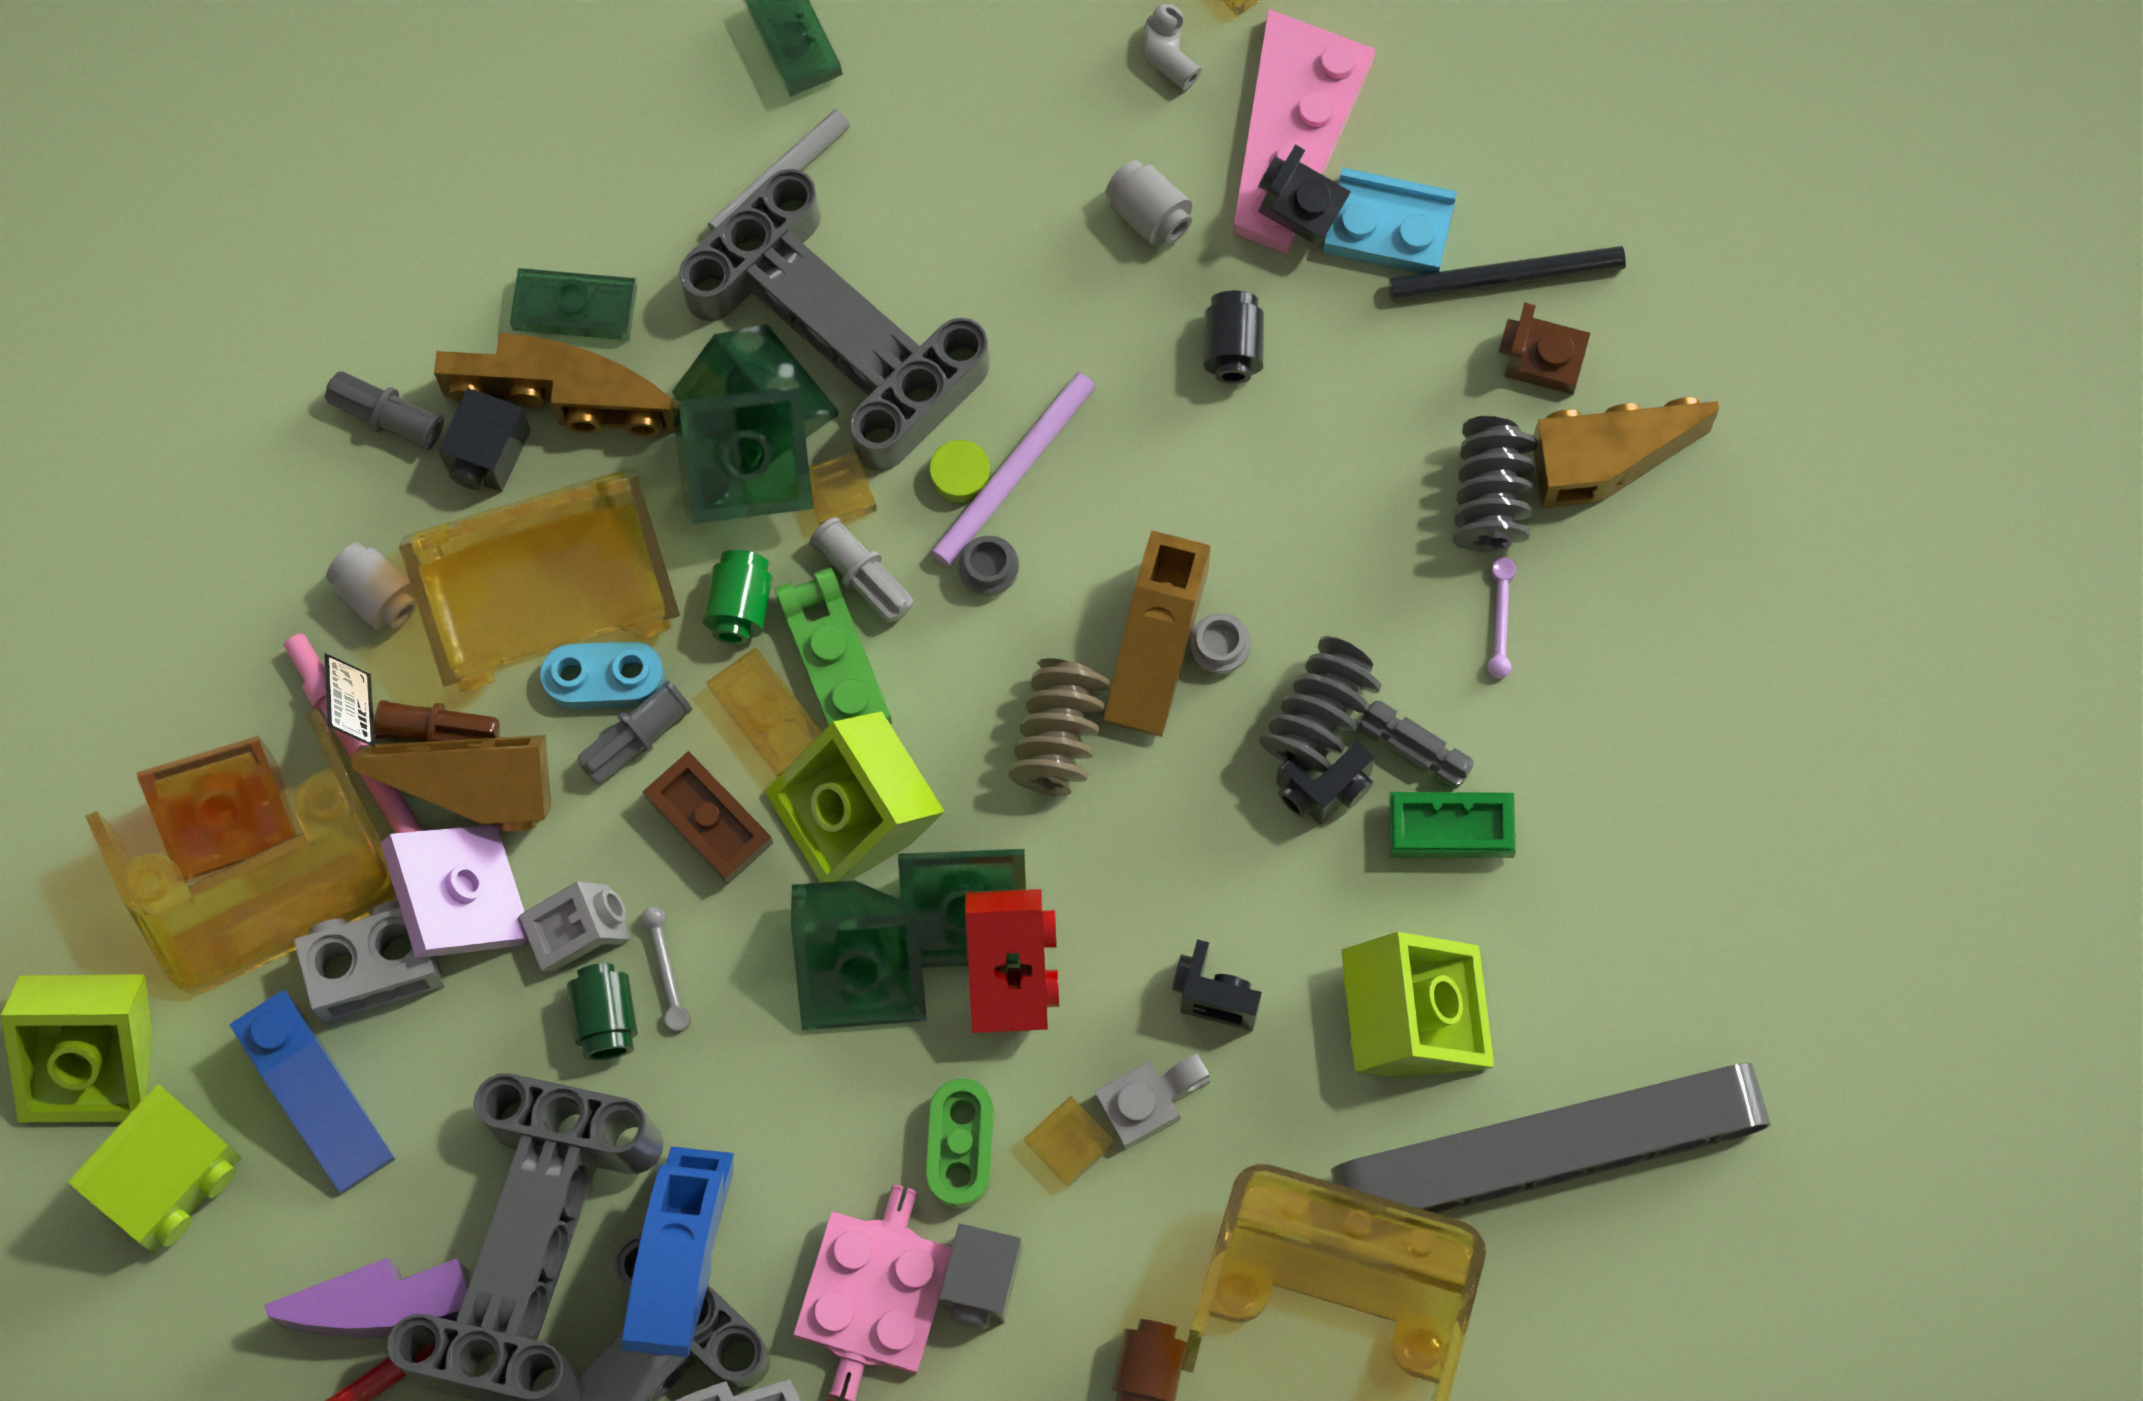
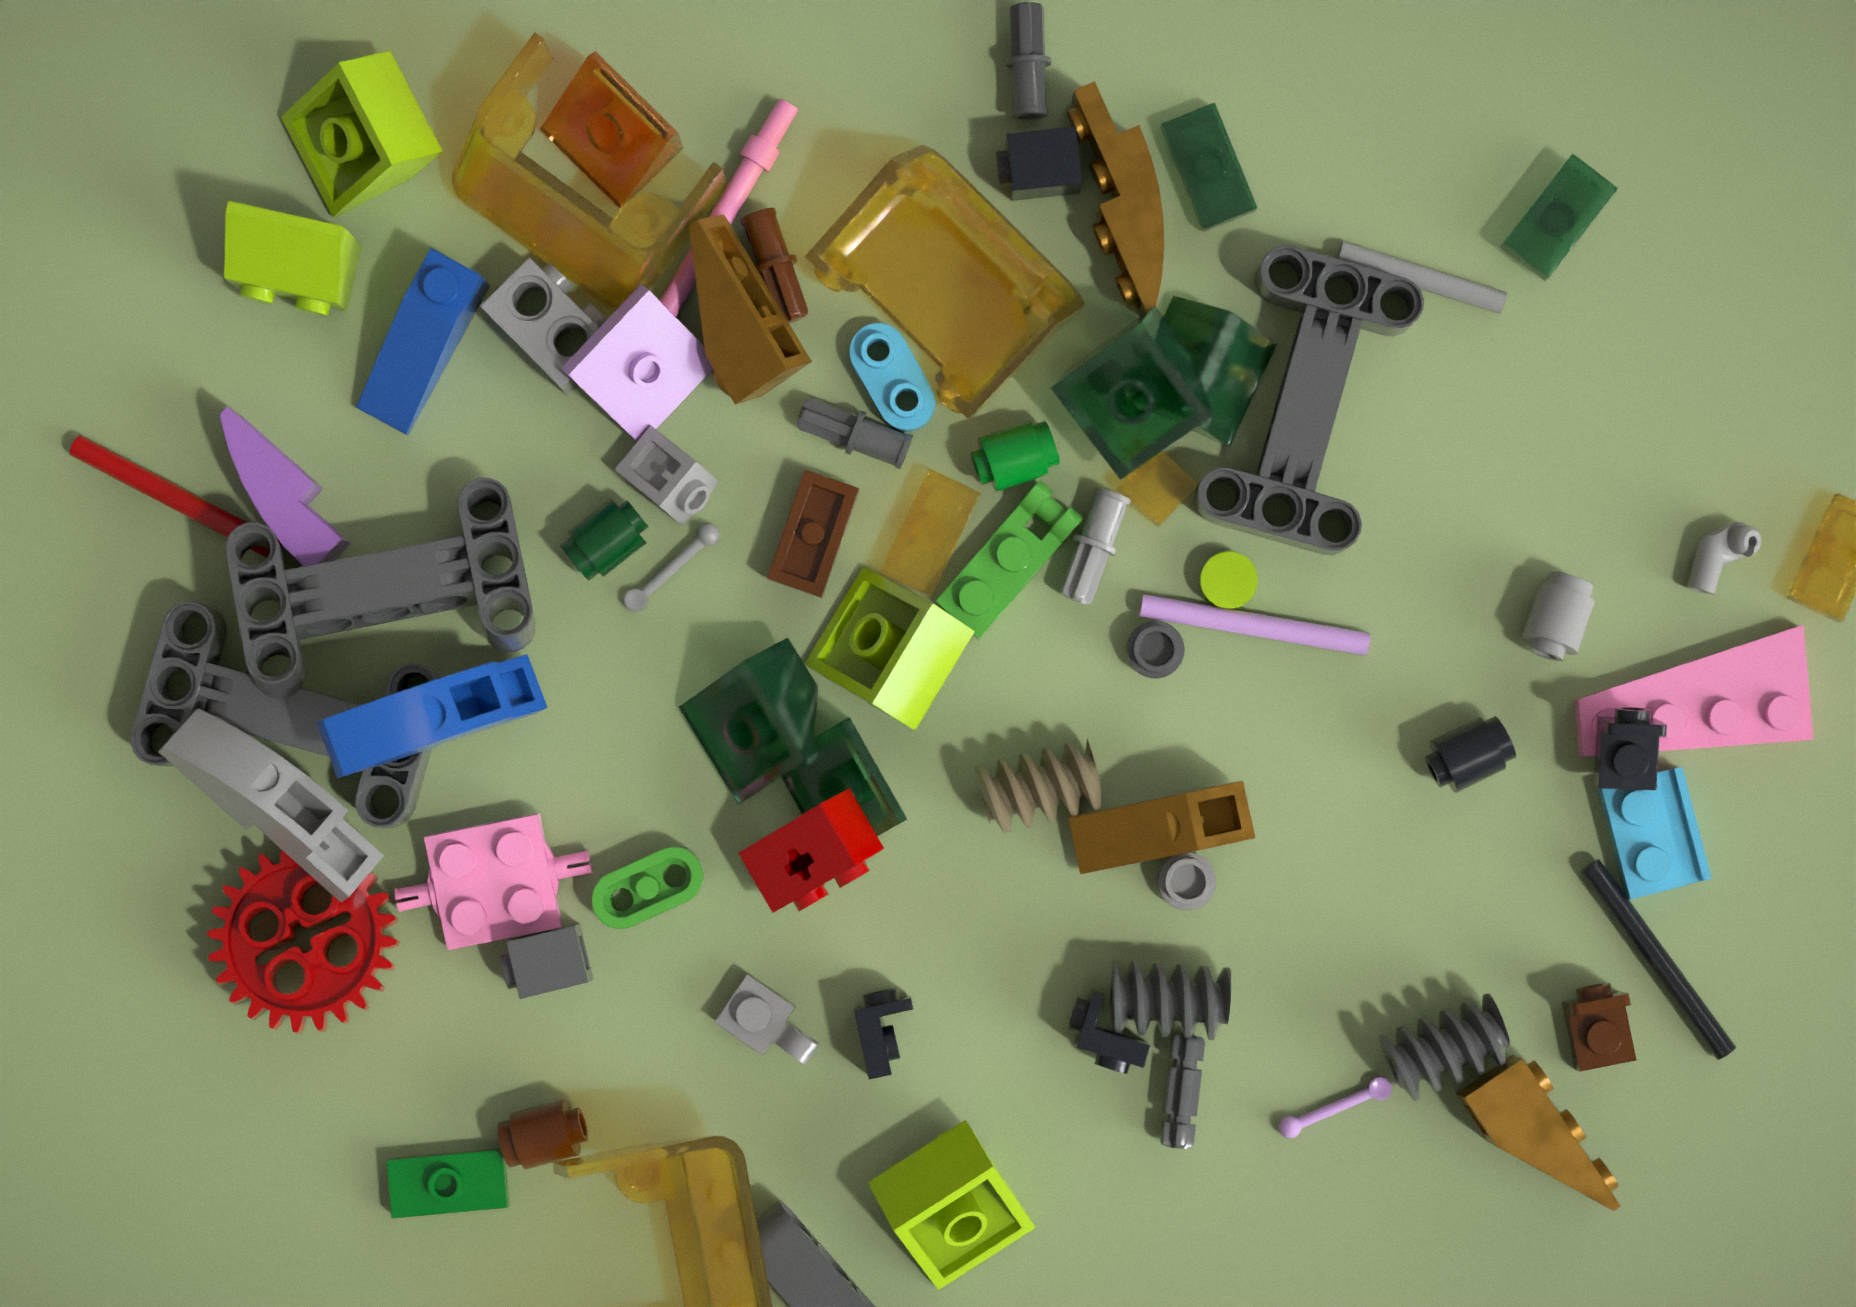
camera: 60 degrees right, 15 degrees up
(349, 700) = (754, 184): sticker -> none
(372, 587) = (864, 142): light grey brick -> none
(1069, 1141) = (697, 973): clear yellow tile -> none
(1452, 825) = (1125, 1156): green plate -> none

